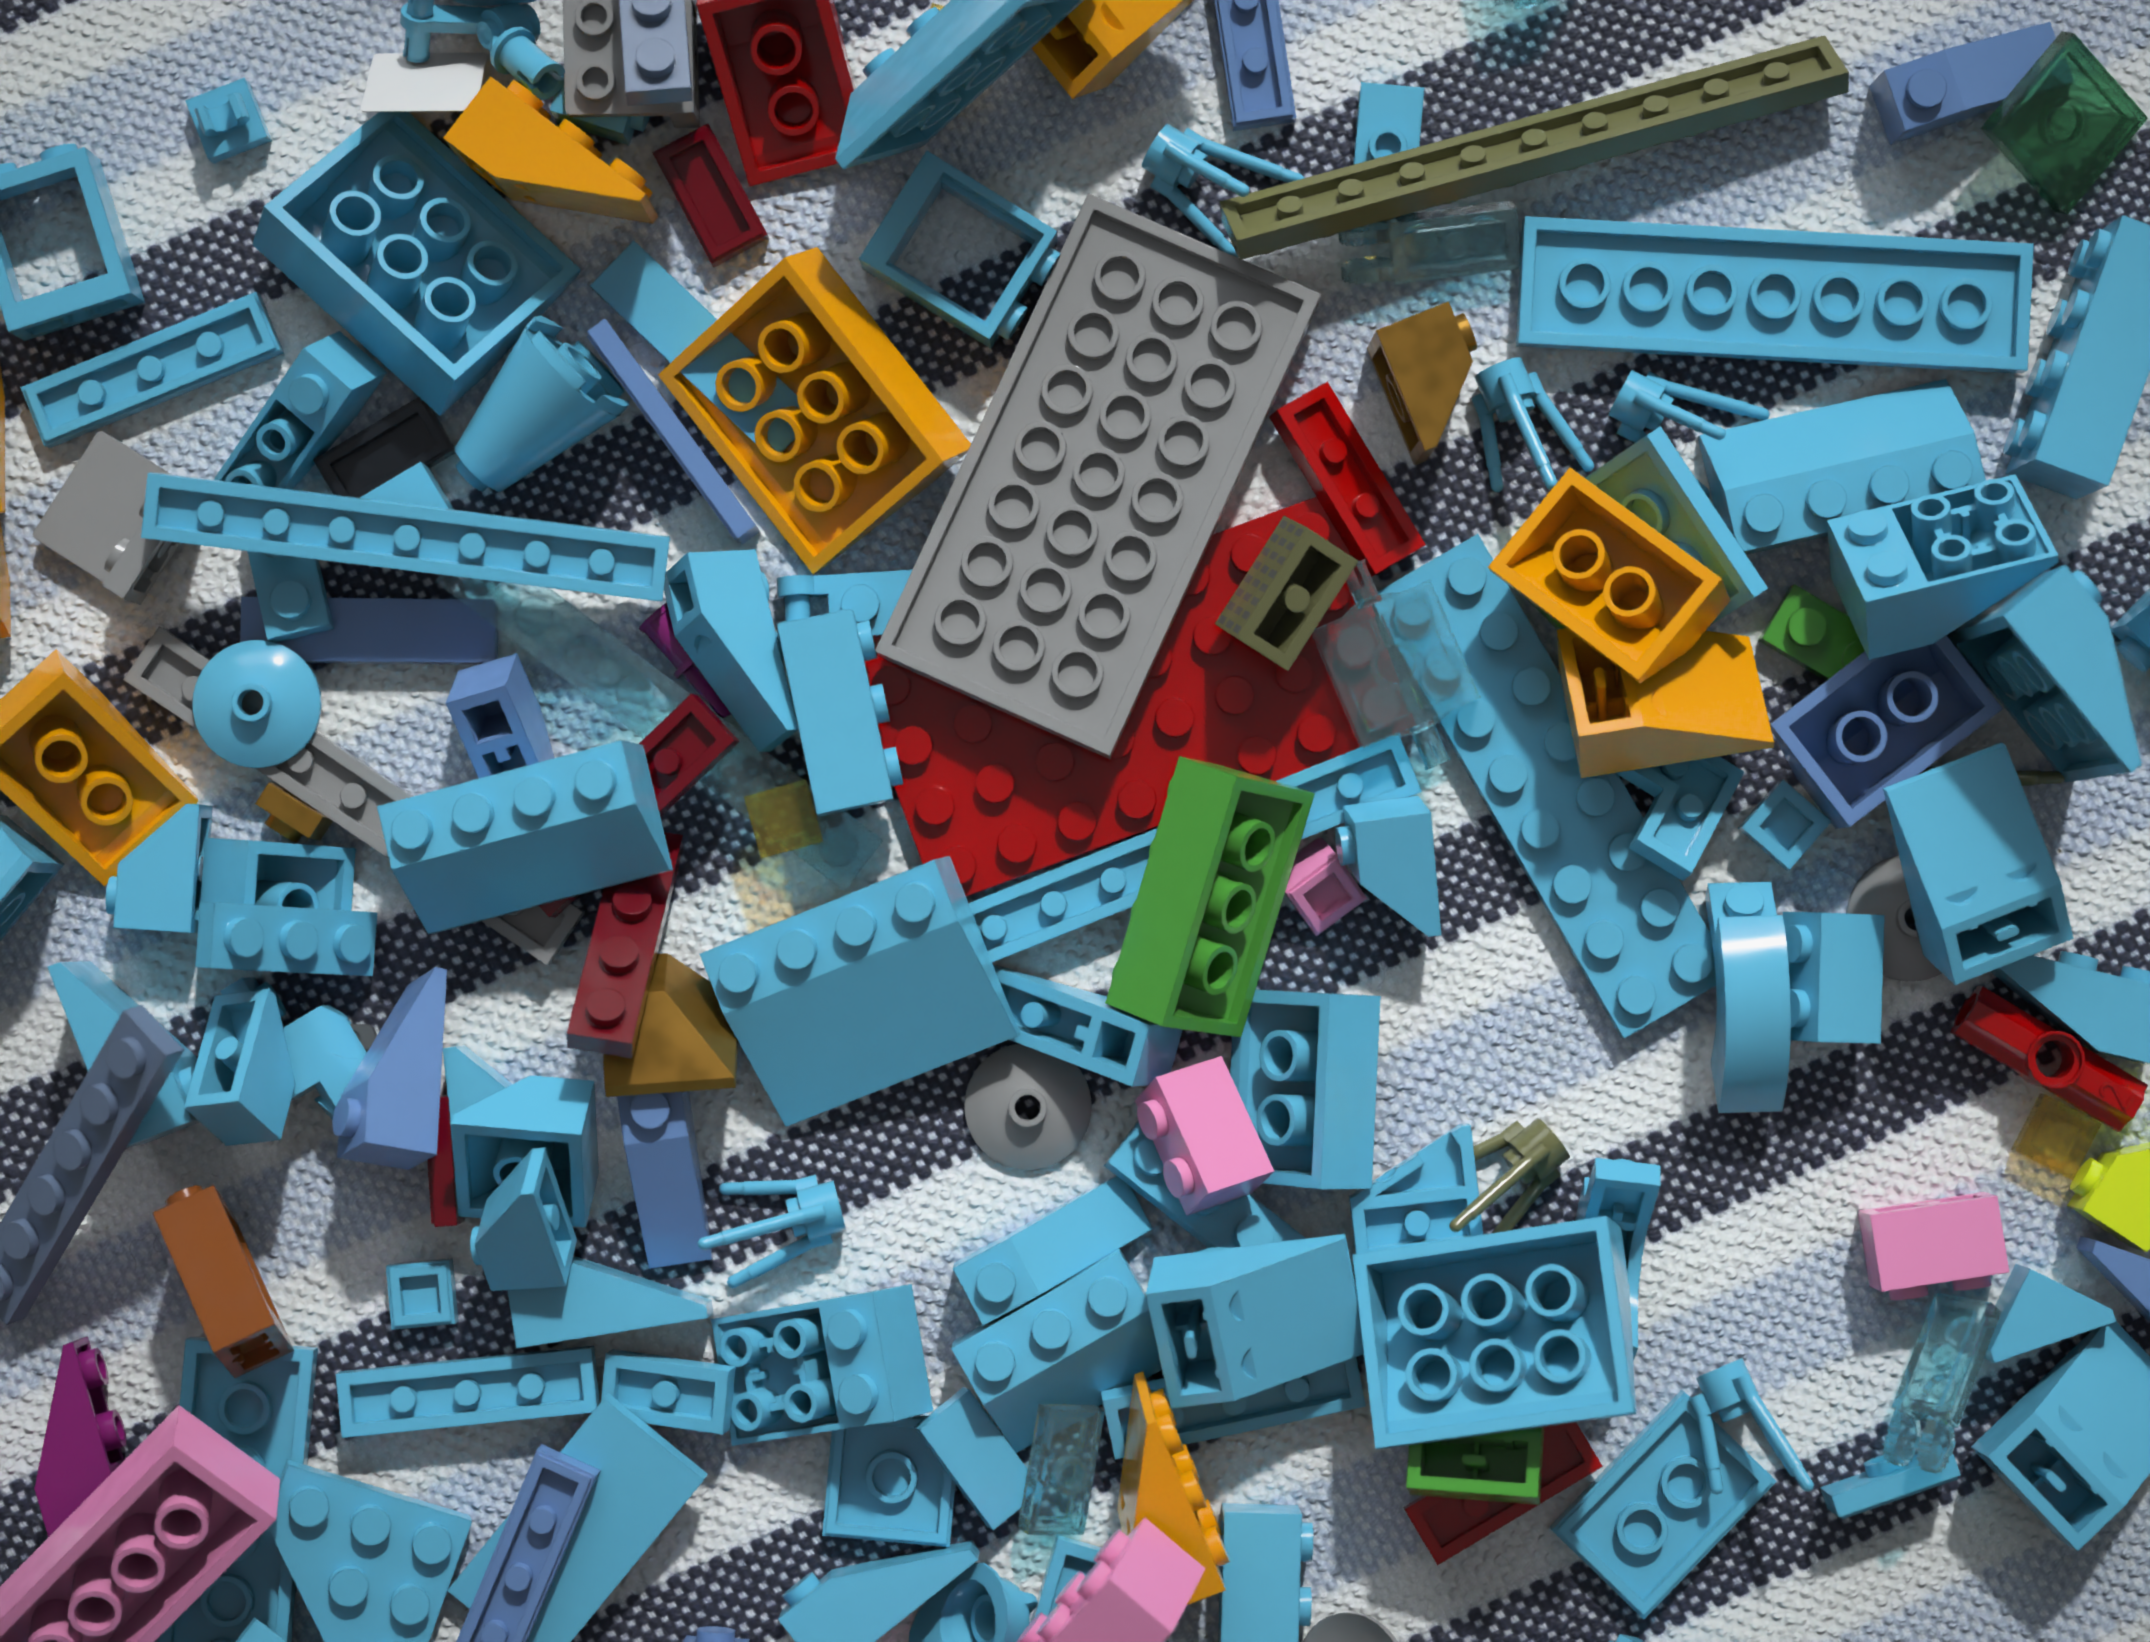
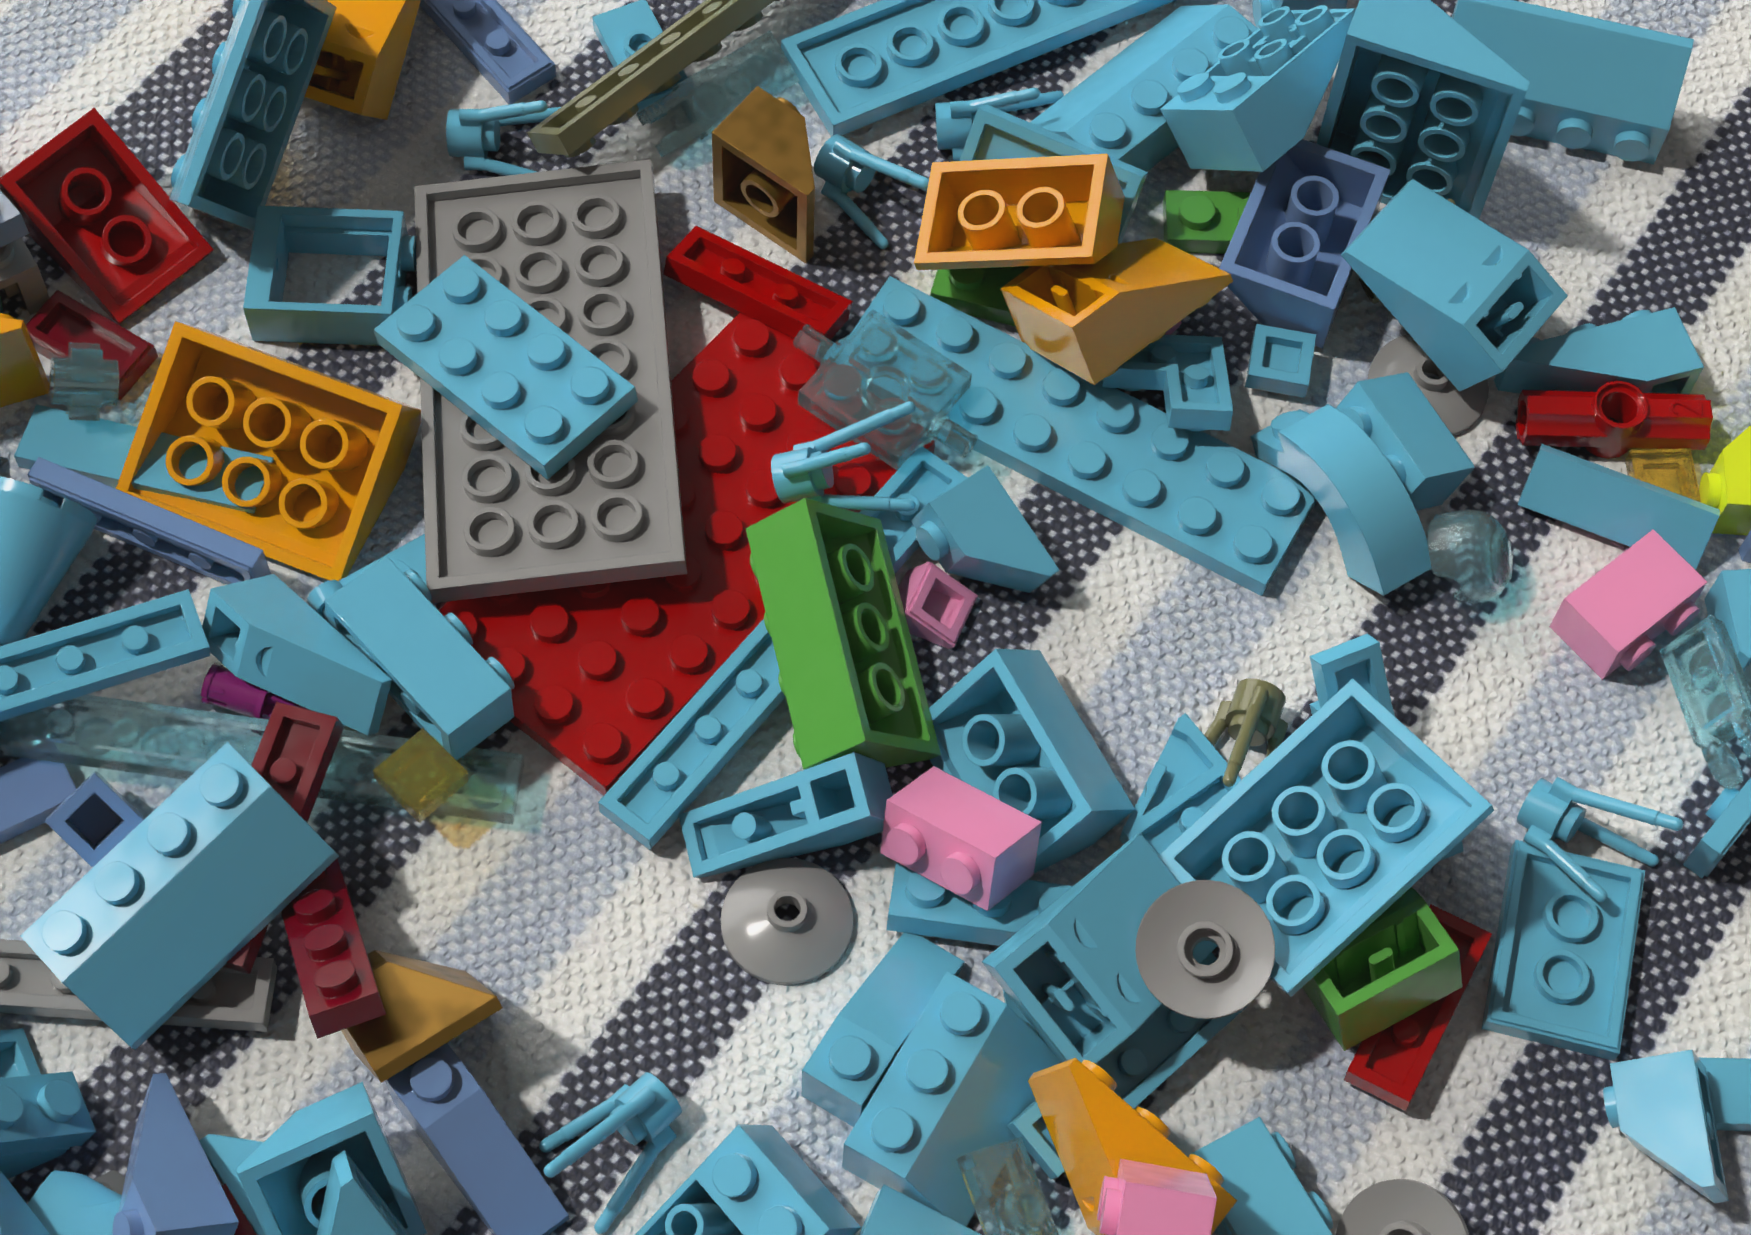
camera: 30 degrees left, 25 degrees down
(681, 255) = (84, 381): none -> clear light blue gear
(862, 991) = (574, 883): medium azure slope -> none
(1062, 457) = (506, 366): none -> medium azure plate
(1273, 721) = (809, 467): none -> medium azure plant
(1286, 592) = (758, 366): olive brick -> none
(1313, 1395) = (1197, 914): none -> light grey dish
(1820, 1119) = (1472, 552): none -> clear light blue hair
(1991, 1144) = (1615, 504): none -> medium azure tile

